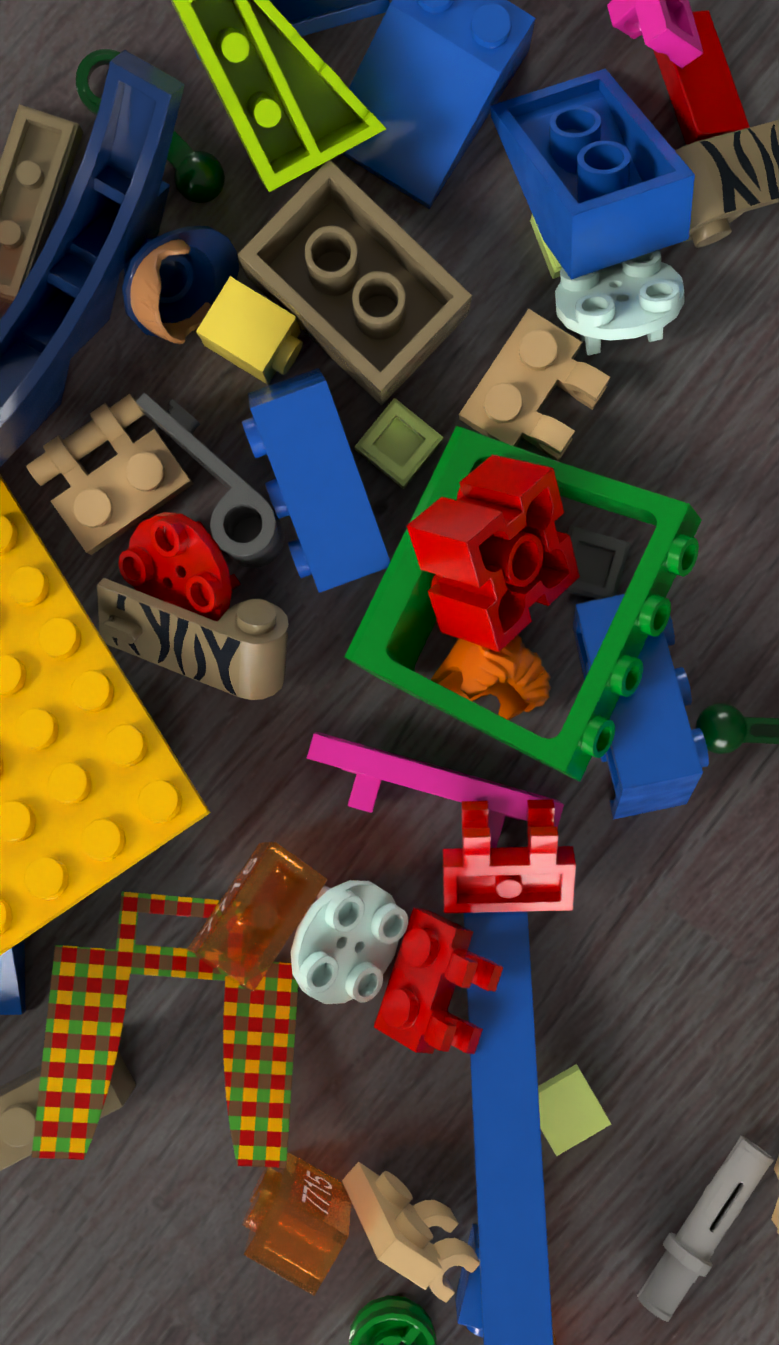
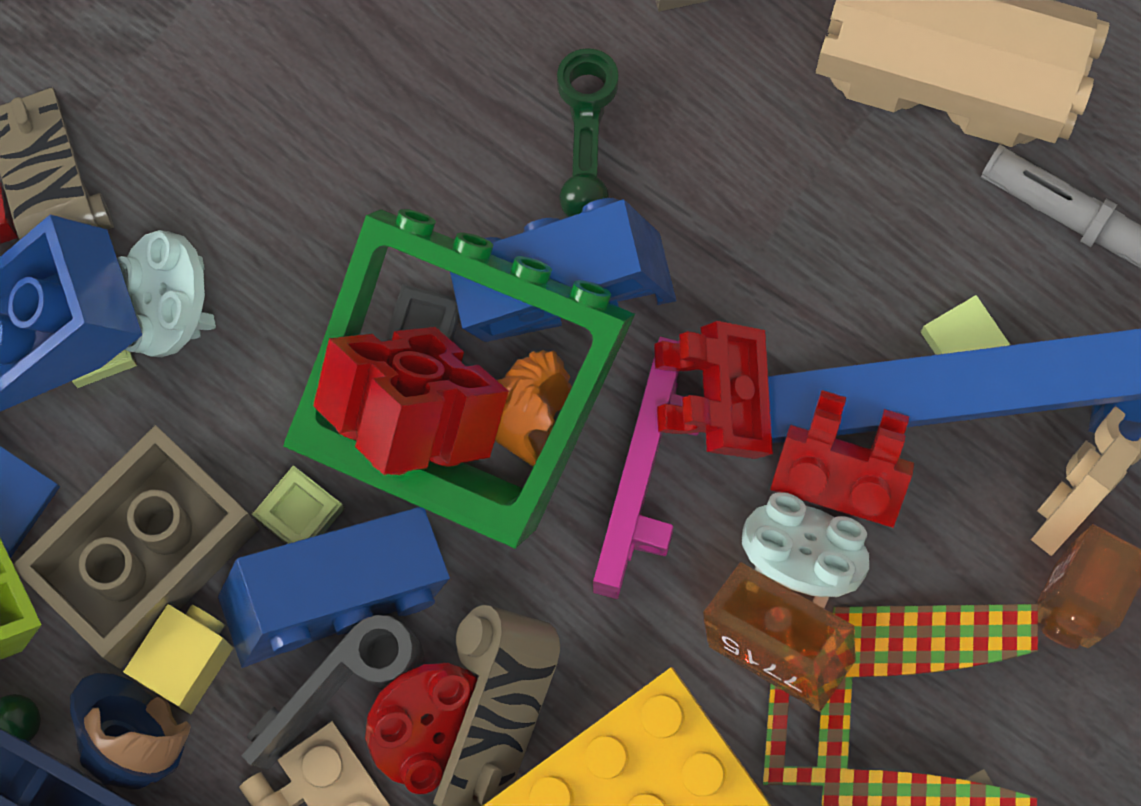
camera: 90 degrees left, 15 degrees down
(522, 379) = (239, 391): tan plate -> none

